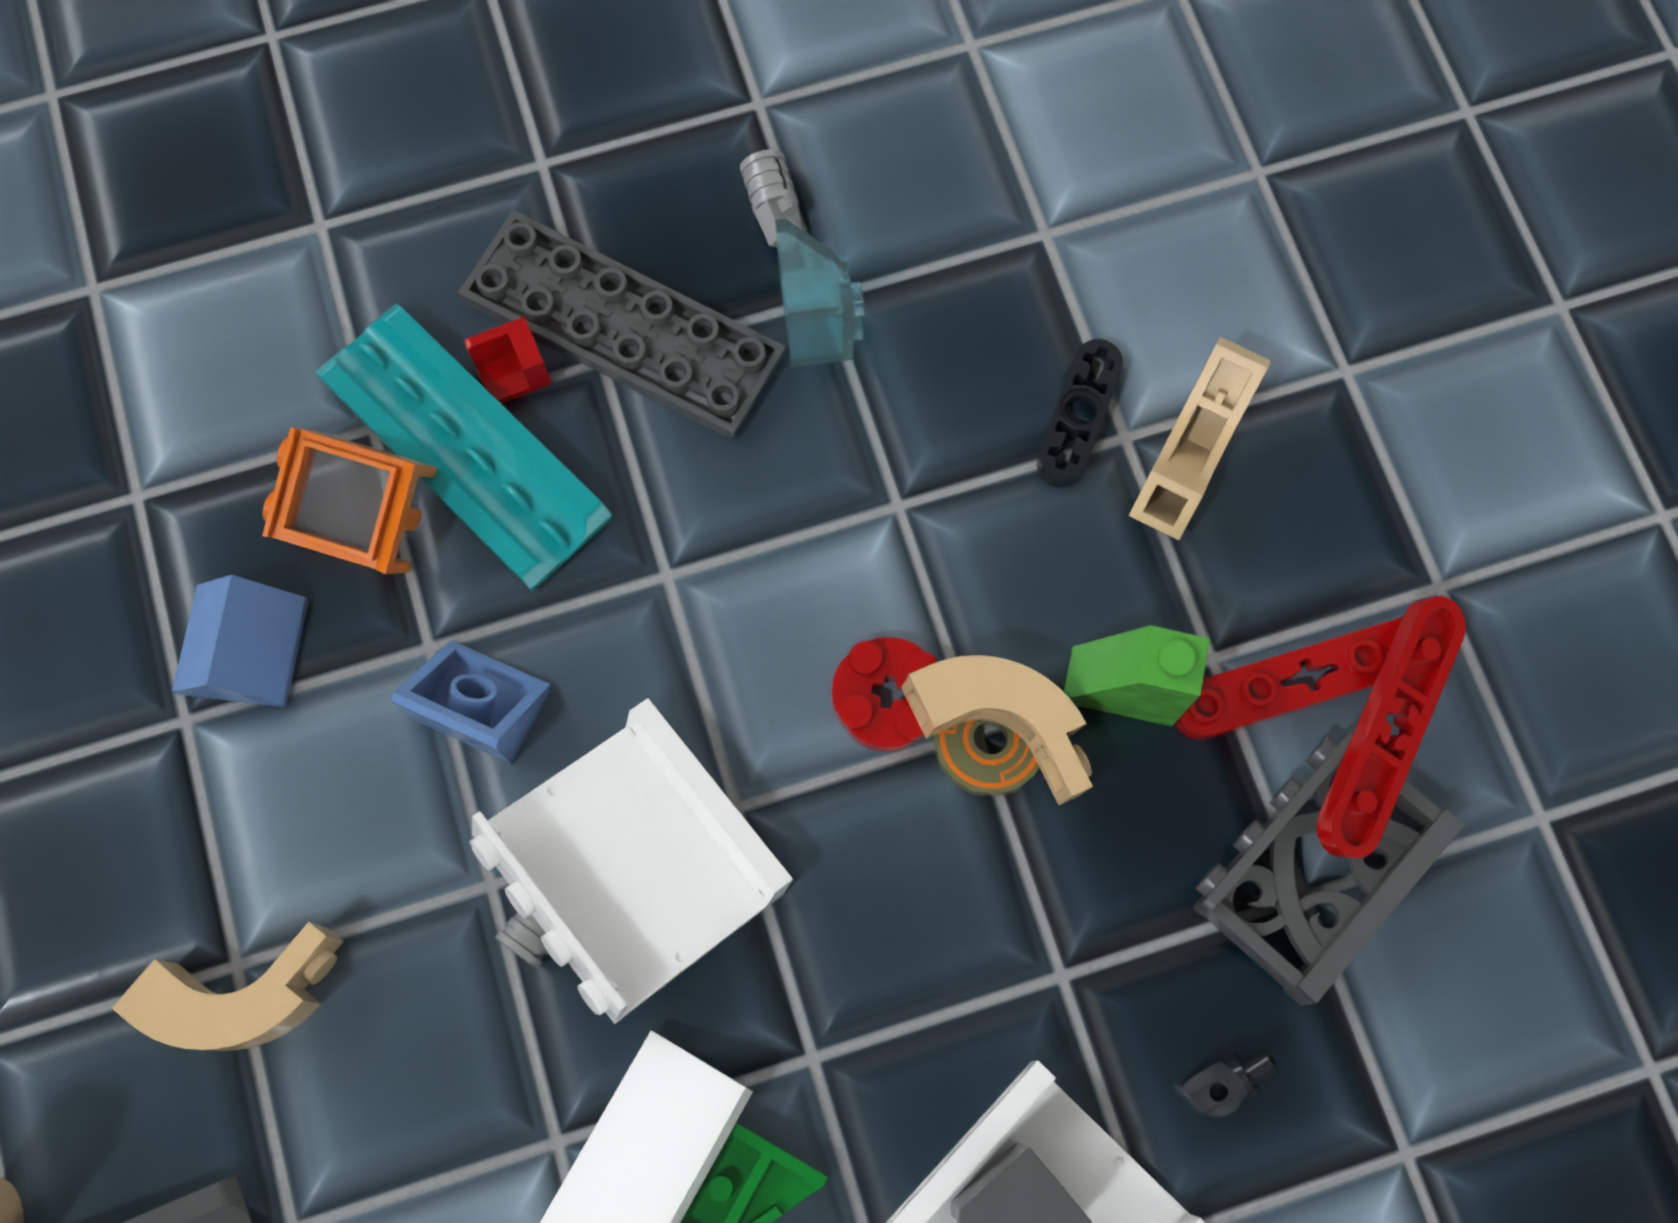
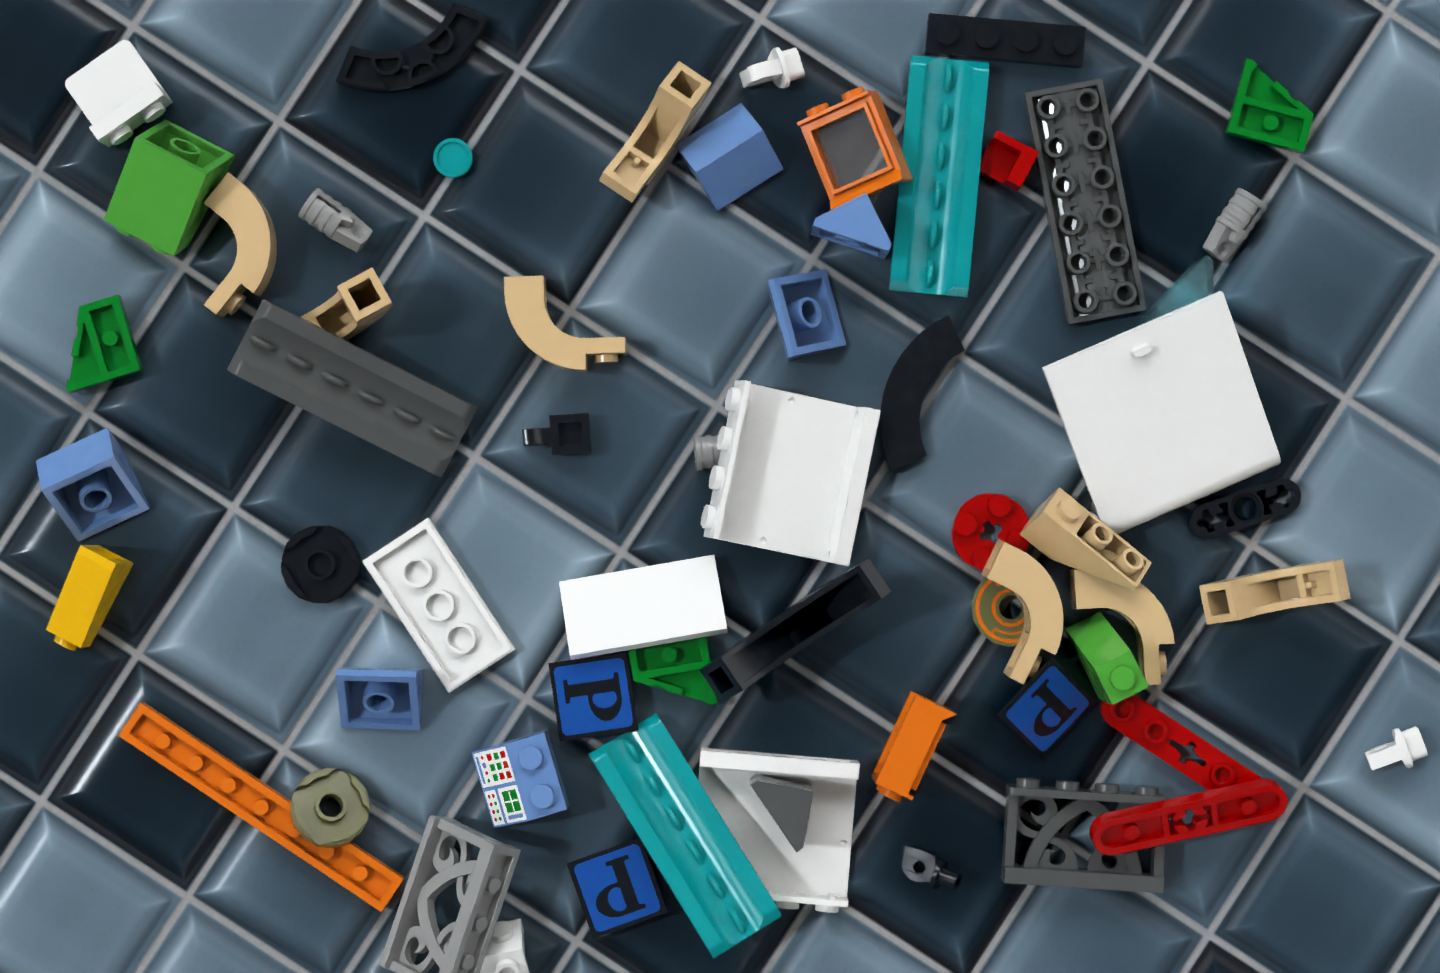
camera: 55 degrees right, 15 degrees up
(134, 689) = (657, 132): none -> tan arch
(196, 518) = (779, 68): none -> white piece
(359, 1093) = (566, 434): none -> black plate
(390, 273) = (1005, 40): none -> black plate
(424, 565) = (854, 226): none -> medium blue slope
(654, 658) = (906, 390): none -> black tile
(691, 87) = (1267, 112): none -> green wing
(811, 1005) = (794, 629): none -> black arch
(912, 402) = (1163, 414): none -> white door
(972, 598) = (1082, 541): none -> tan slope
(1065, 982) = (910, 746): none -> orange window
(1088, 602) = (1138, 608): none -> tan arch
(1138, 787) = (1046, 707): none -> piece
(1474, 447) = (1406, 747): none -> white piece

